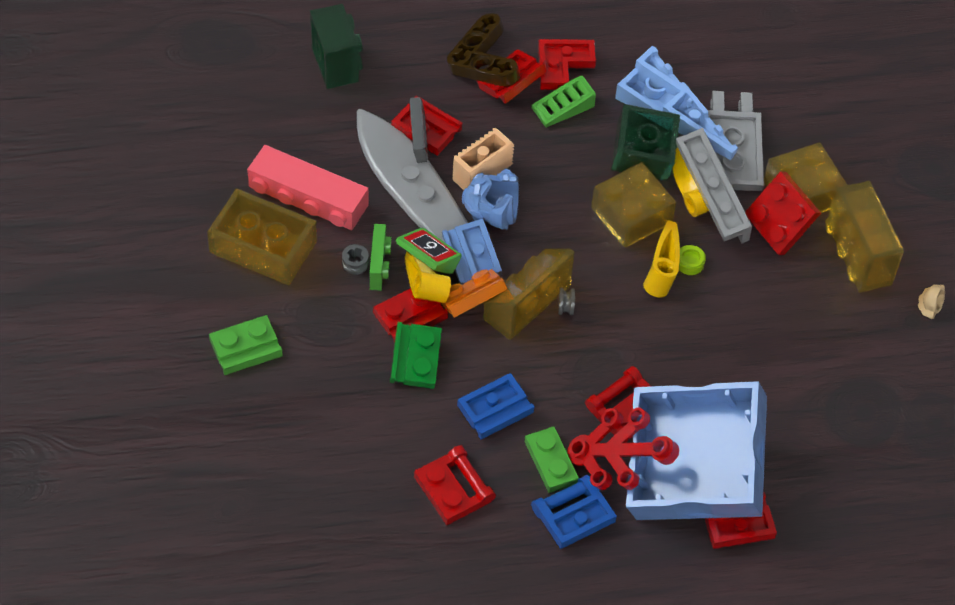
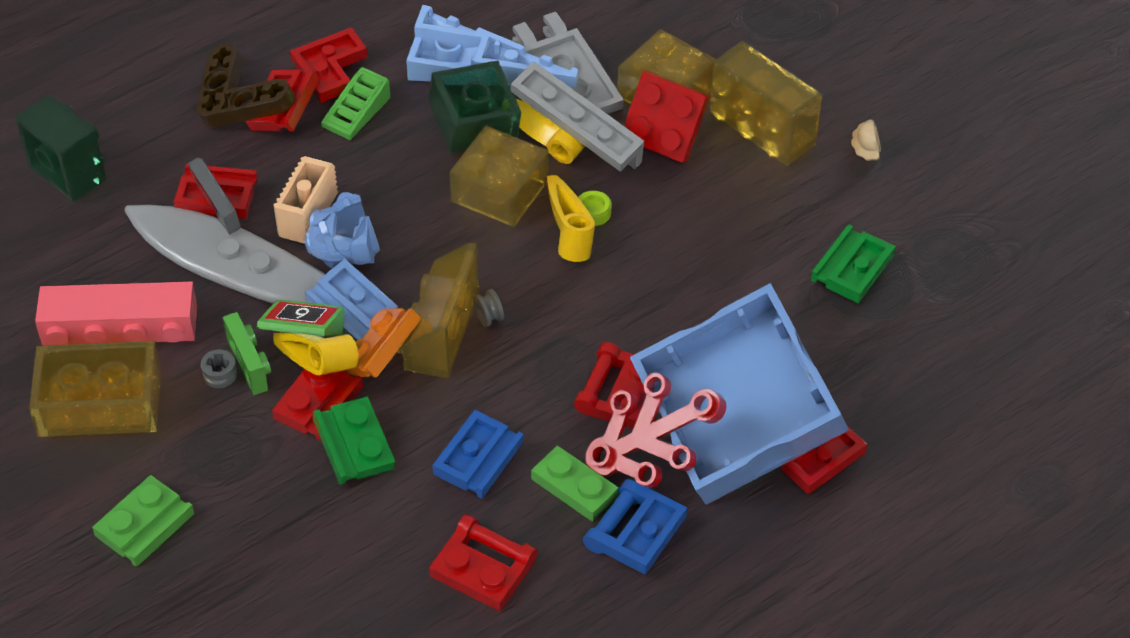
camera: 25 degrees left, 5 degrees down
(857, 392) = (853, 263): none -> green plate

